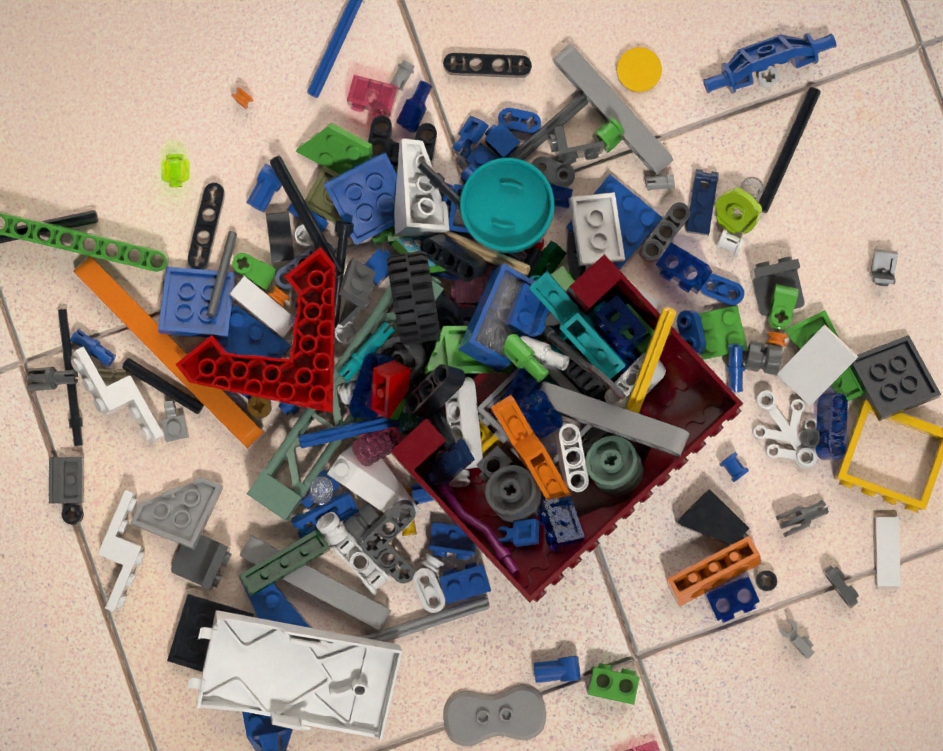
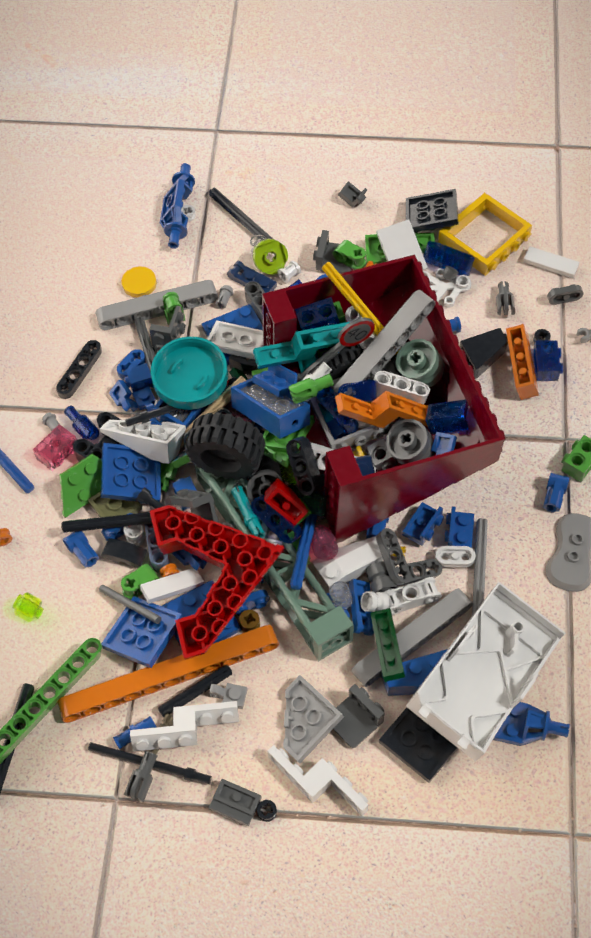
camera: 65 degrees left, 25 degrees down
(204, 226) = (84, 606): black beam -> none
(432, 563) = (433, 544): white bush -> none

